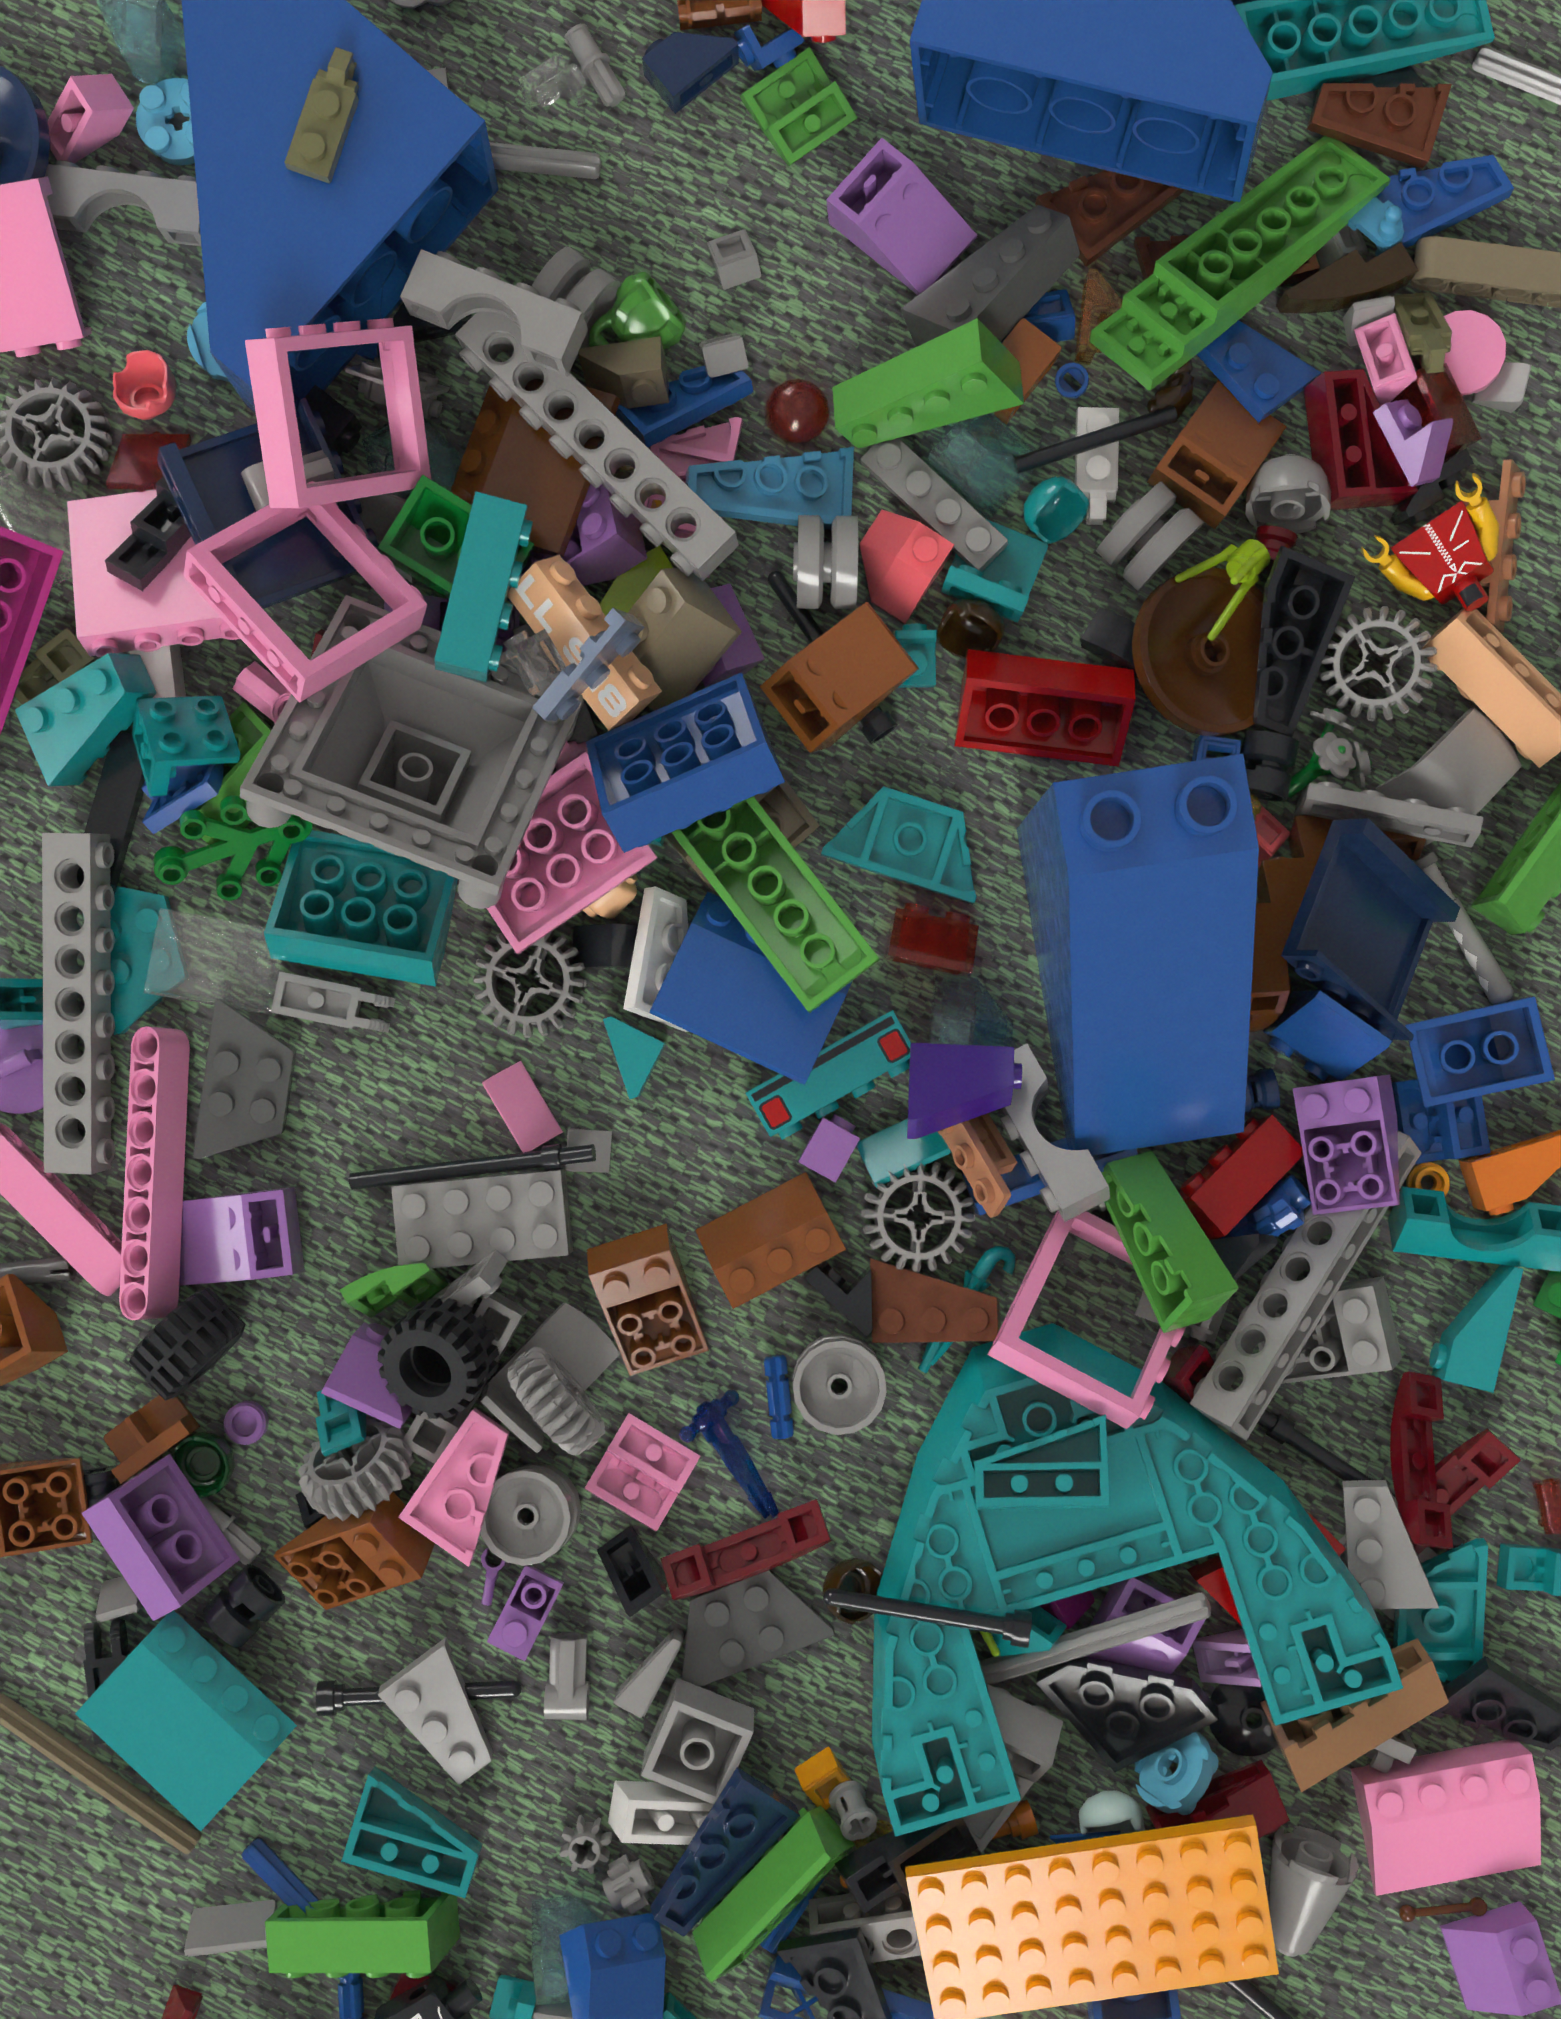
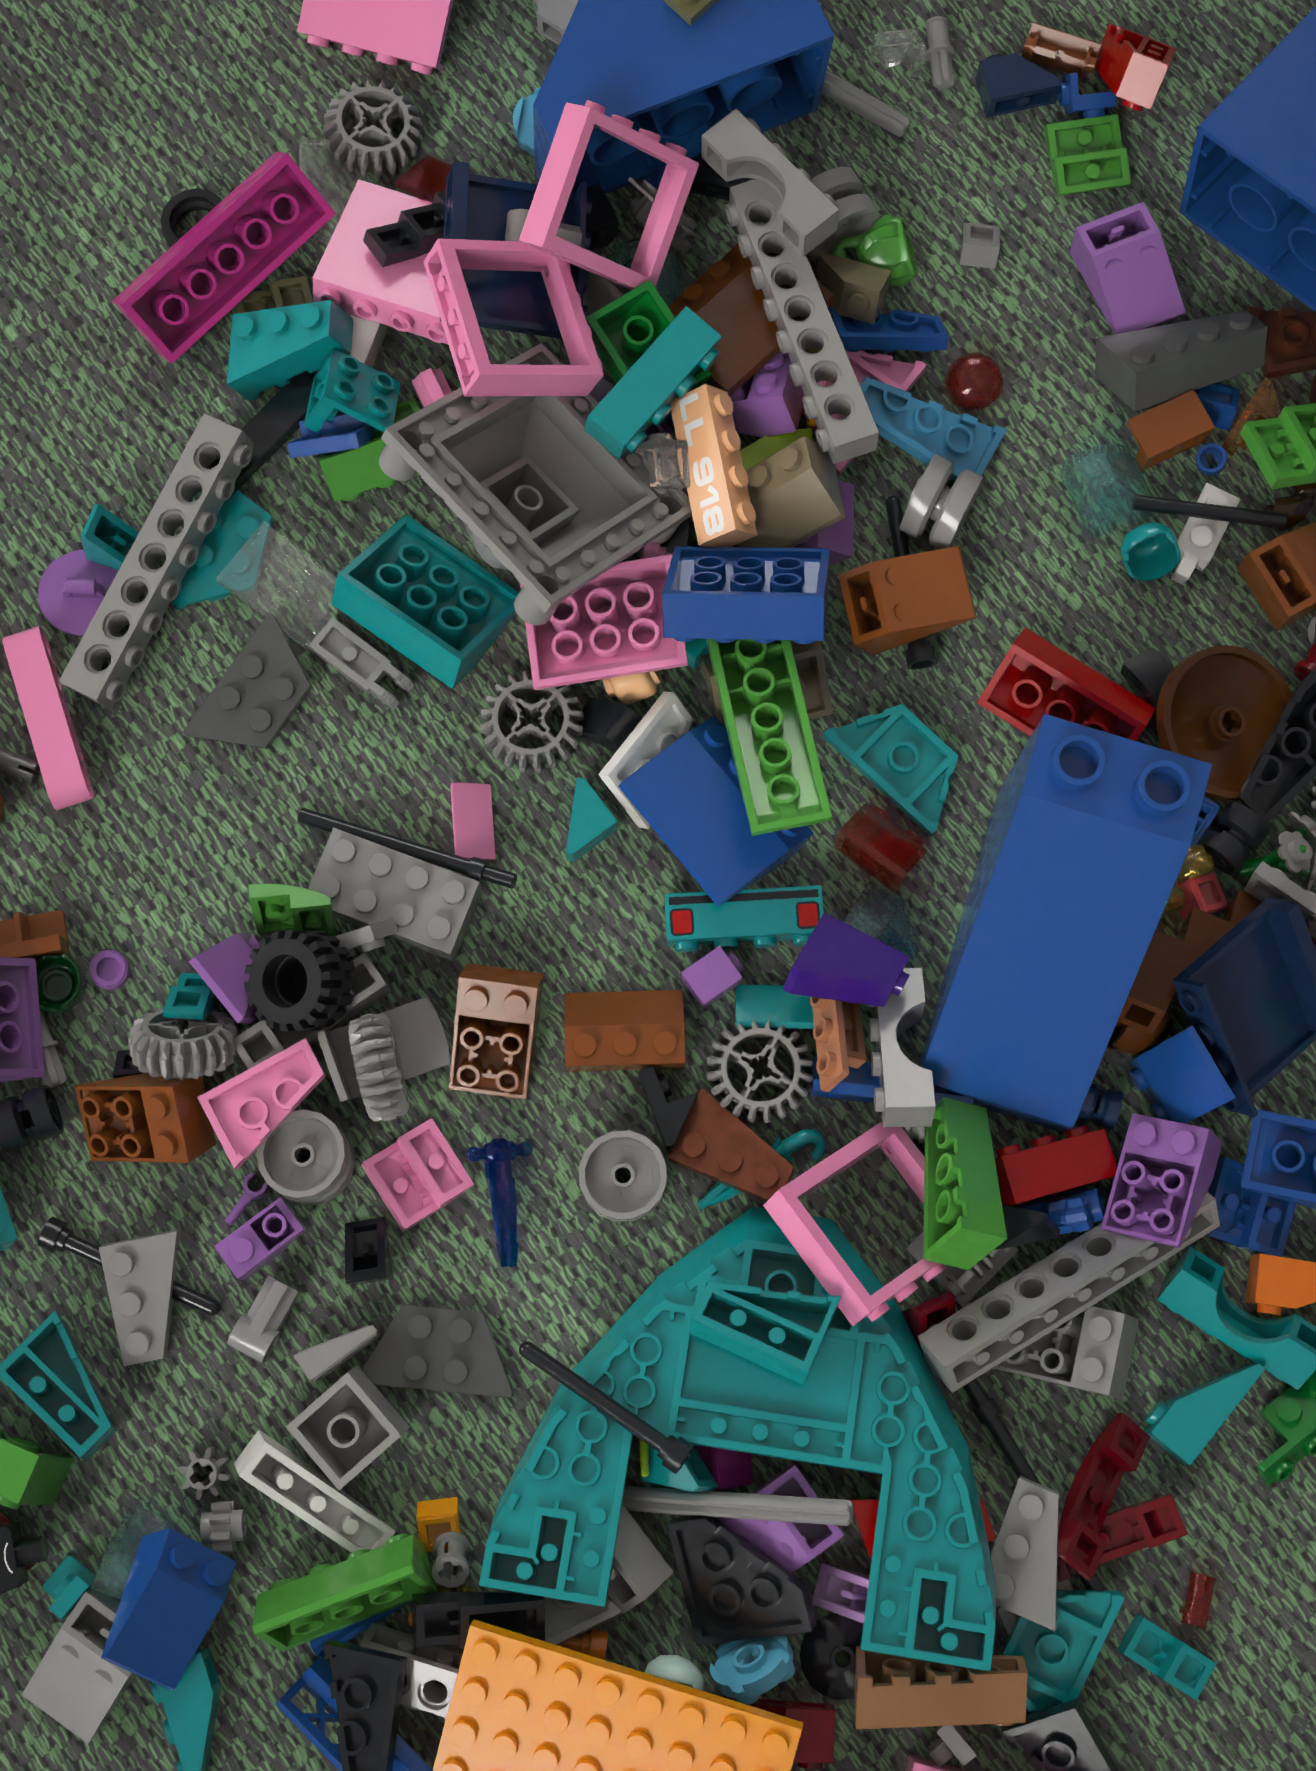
camera: 25 degrees right, 10 degrees down
(144, 385) = (464, 125): coral hair -> none
(154, 1173) = (145, 728): bright pink beam -> none
(187, 1343) = (99, 873): black tyre -> none
(234, 841) = (353, 498): green plant -> none
(240, 1237) = (185, 811): medium lavender slope -> none
(596, 654) = (721, 472): sand blue wing -> none
(602, 1141) = (511, 897): light grey slope -> none
(724, 354) = (936, 311): light grey slope -> none
(729, 1841) = (327, 1529): dark blue wing -> none
(746, 1552) = (472, 1287): dark red slope -> none
(778, 1396) = (565, 1167): blue axle -> none
(854, 1576) = (536, 1379): dark brown hair -> none
(901, 562) = (1004, 537): coral slope -> none
(921, 647) = (988, 607): teal bracket -> none
(929, 387) = (1091, 404): bright green wedge -> none
(934, 502) = (1052, 501): light grey plate -> none
(970, 625) = (1035, 609): dark brown hair -> none
(1005, 580) = (1077, 576): teal bracket -> none
(1148, 535) = (1218, 605): light grey wheel -> none
(1242, 567) = (1286, 665): lime plant -> none
(1438, 1174) = (1226, 1254): light orange plate -> none

